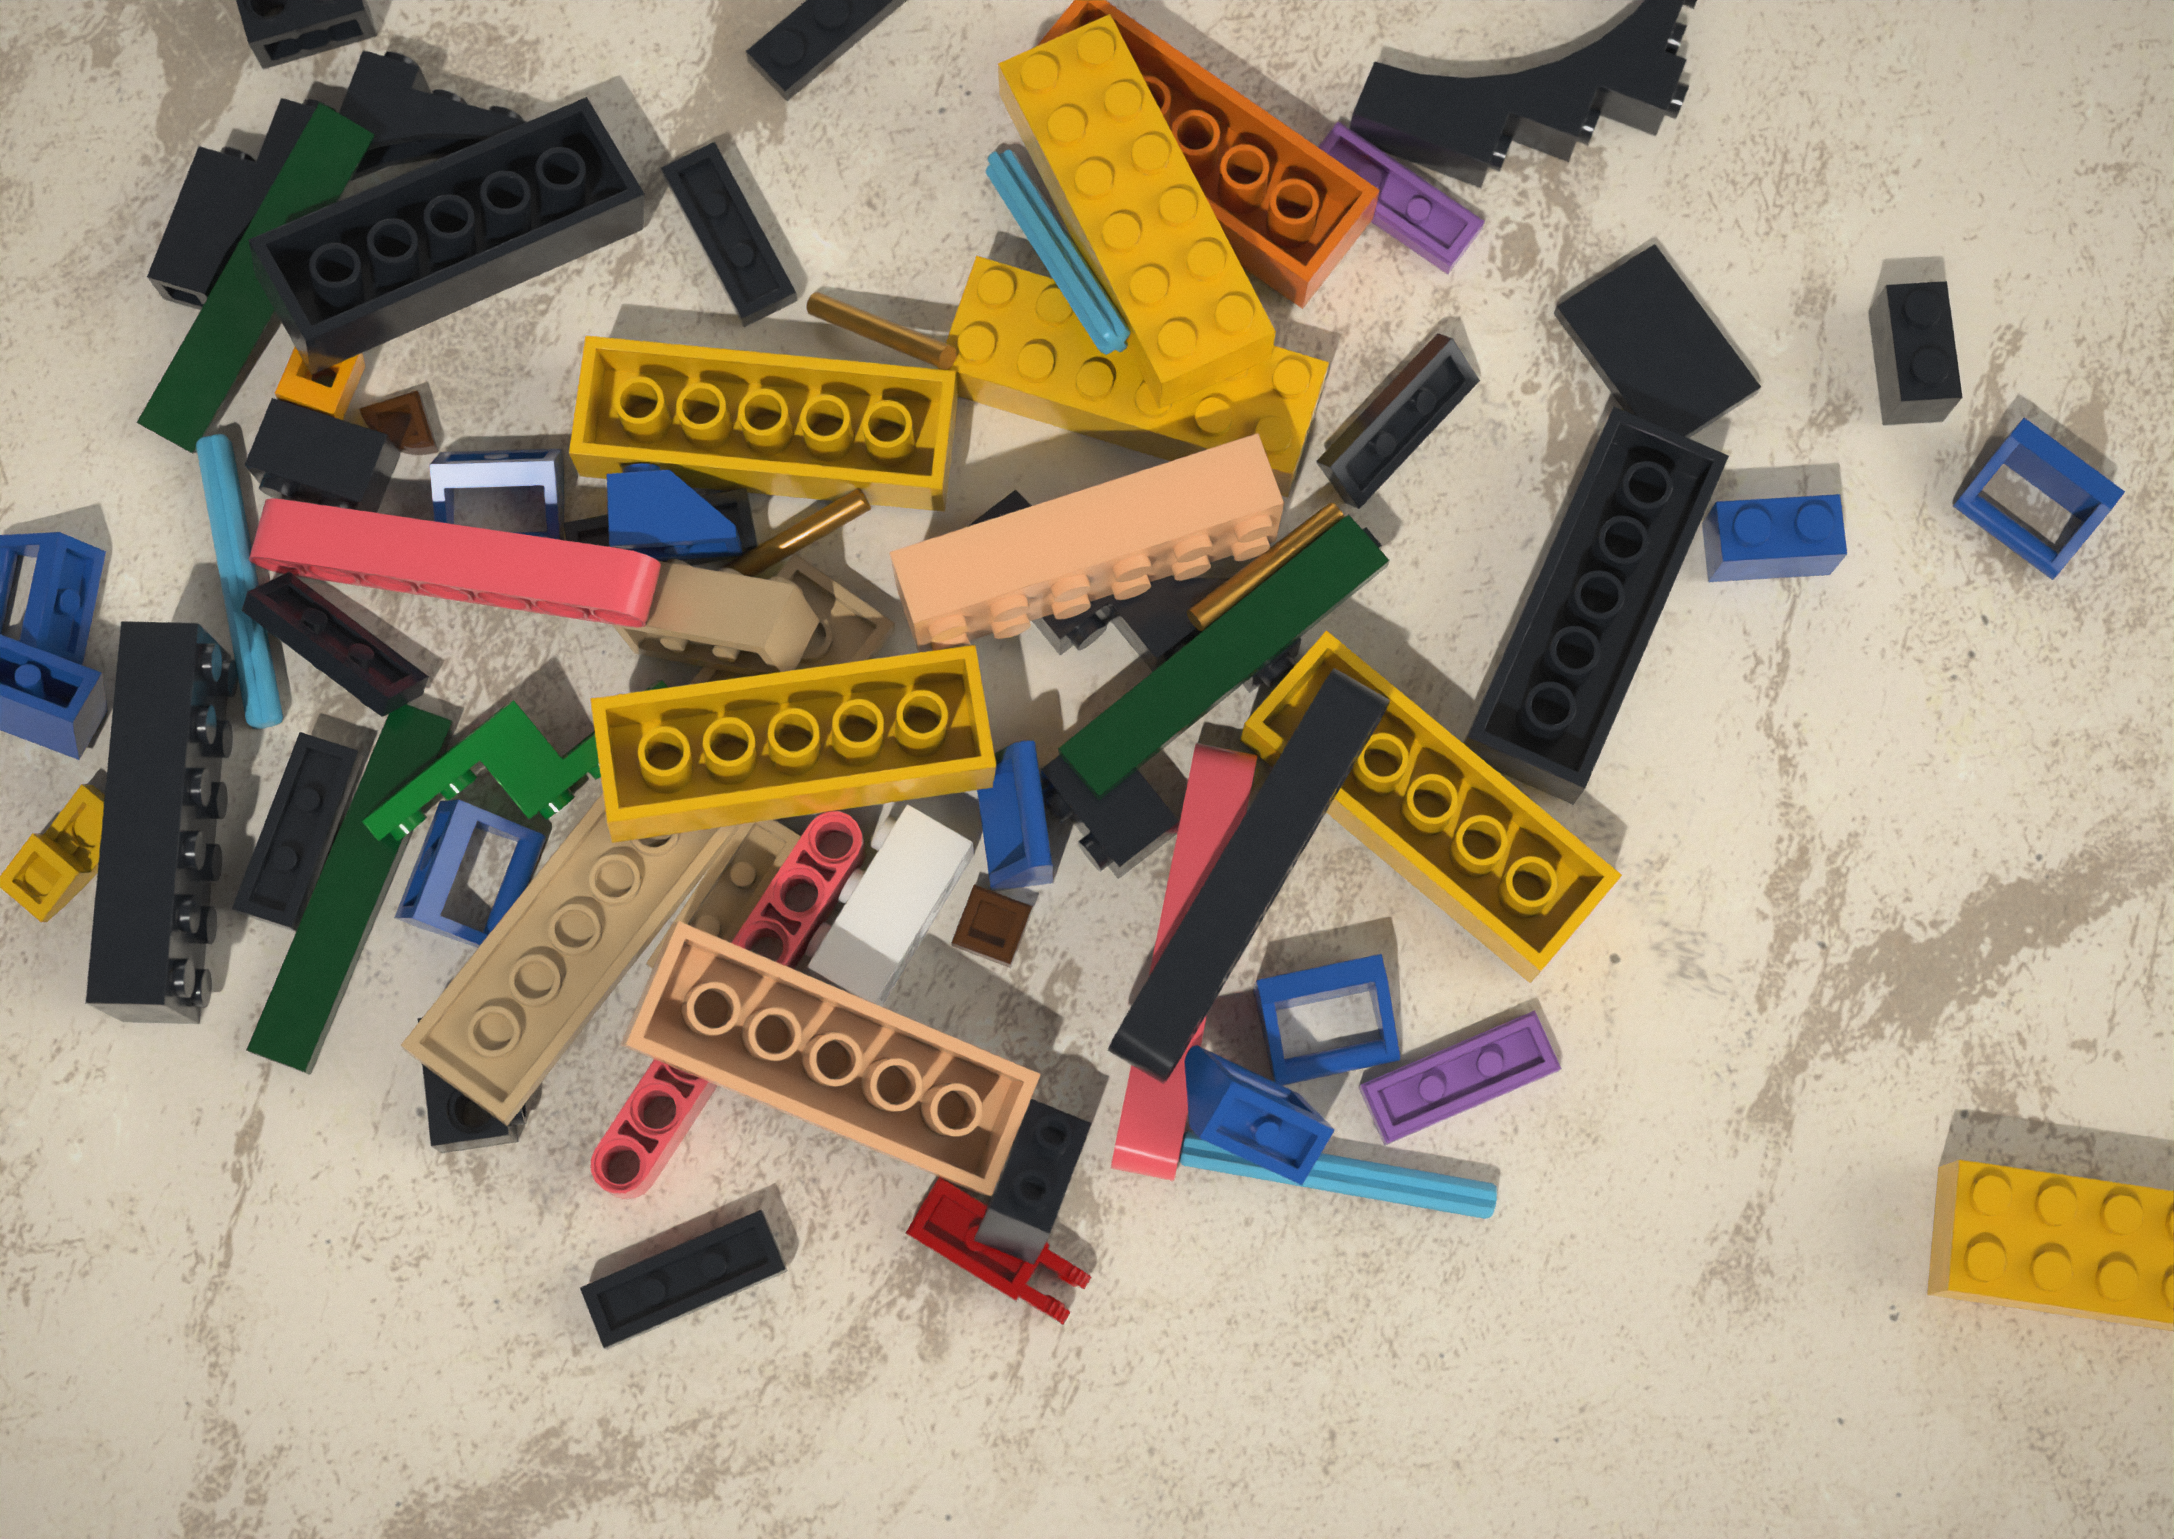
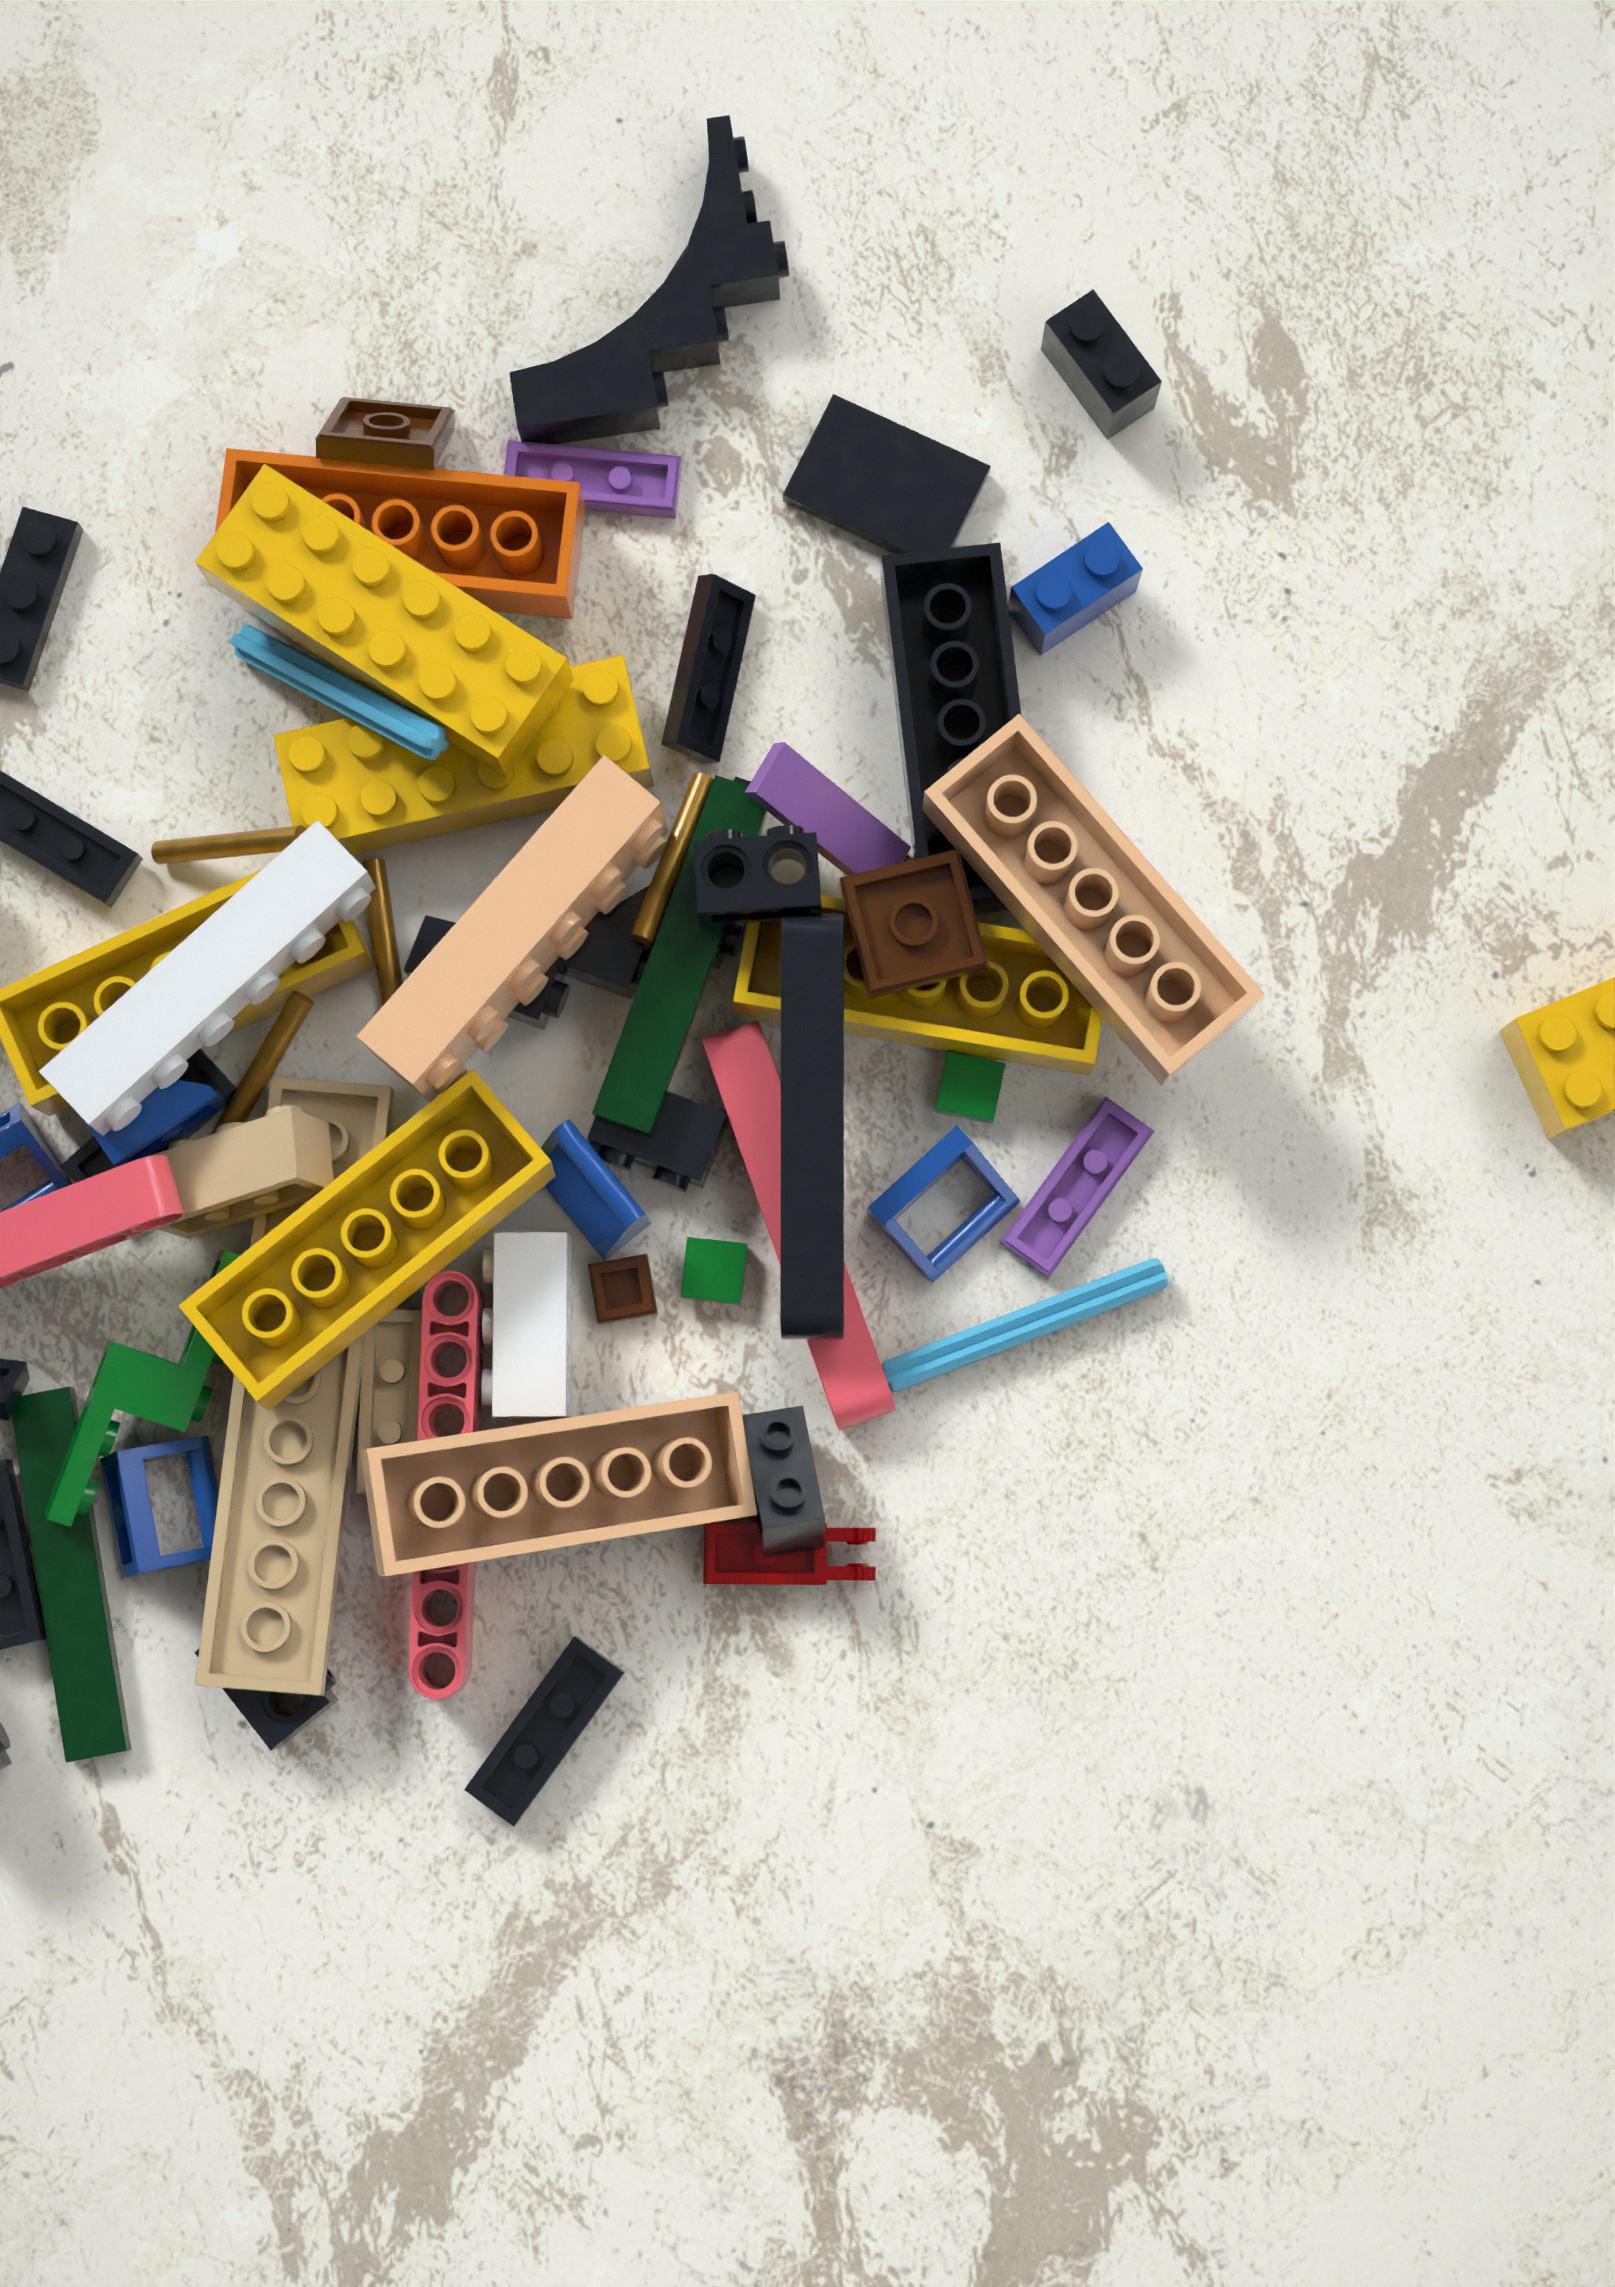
camera: 25 degrees left, 5 degrees up
(792, 432) = (210, 980): none -> white brick
(973, 474) = (383, 930): none -> pearl gold bar
(1084, 957) = (714, 1270): none -> green tile
(1233, 53) = (386, 433): none -> reddish brown plate
(1253, 1116) = (930, 1321): blue tile -> none
(1323, 639) = (758, 893): none -> black brick
(1414, 930) = (970, 1087): none -> green tile
(1426, 613) = (807, 798): none -> medium lavender tile
(1449, 747) = (913, 923): none -> reddish brown plate
(1624, 819) = (1090, 899): none -> light nougat brick
(2057, 475) = (1277, 401): blue tile -> none

